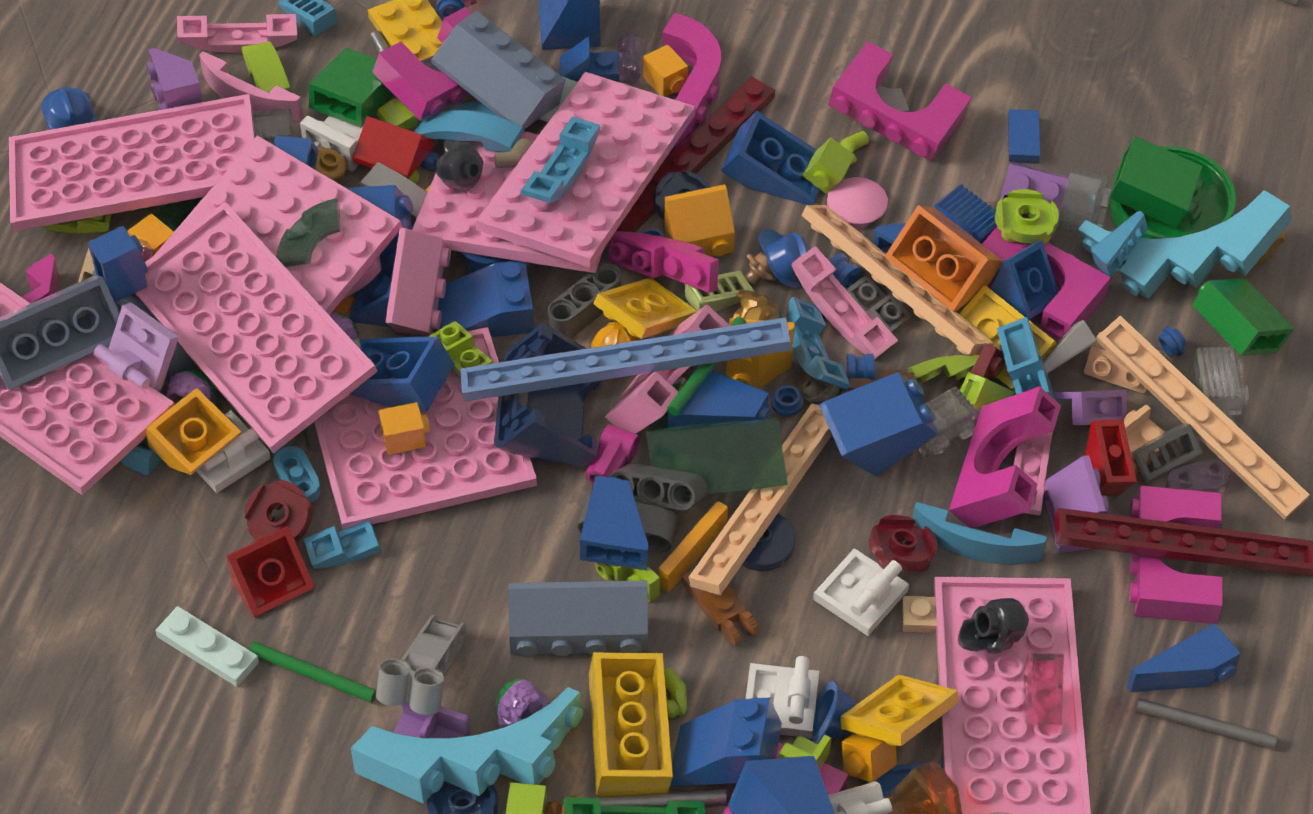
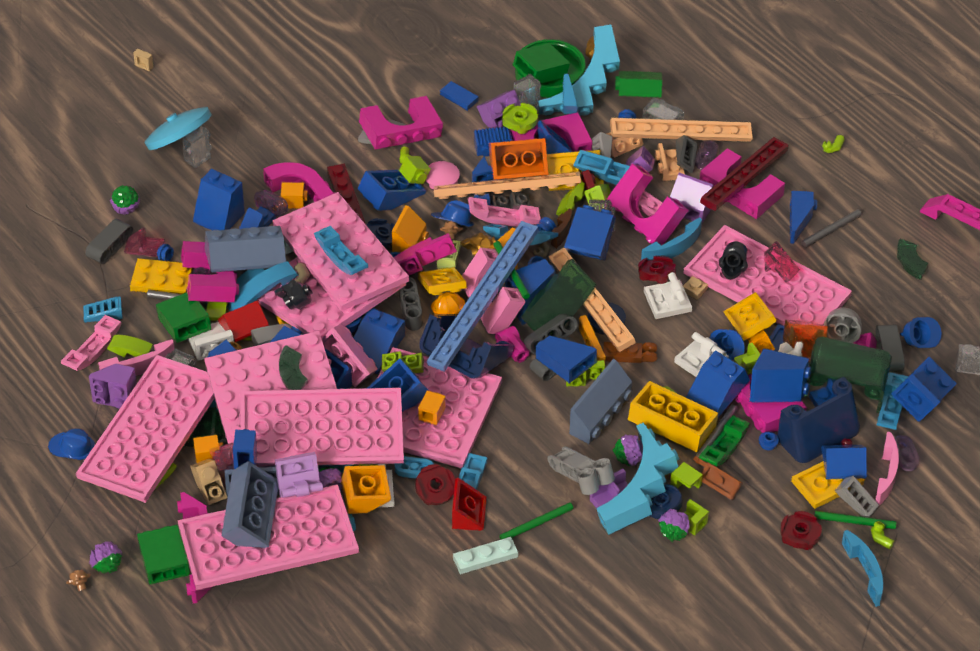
camera: 55 degrees left, 5 degrees down
(1111, 456) = (673, 166): red slope -> none

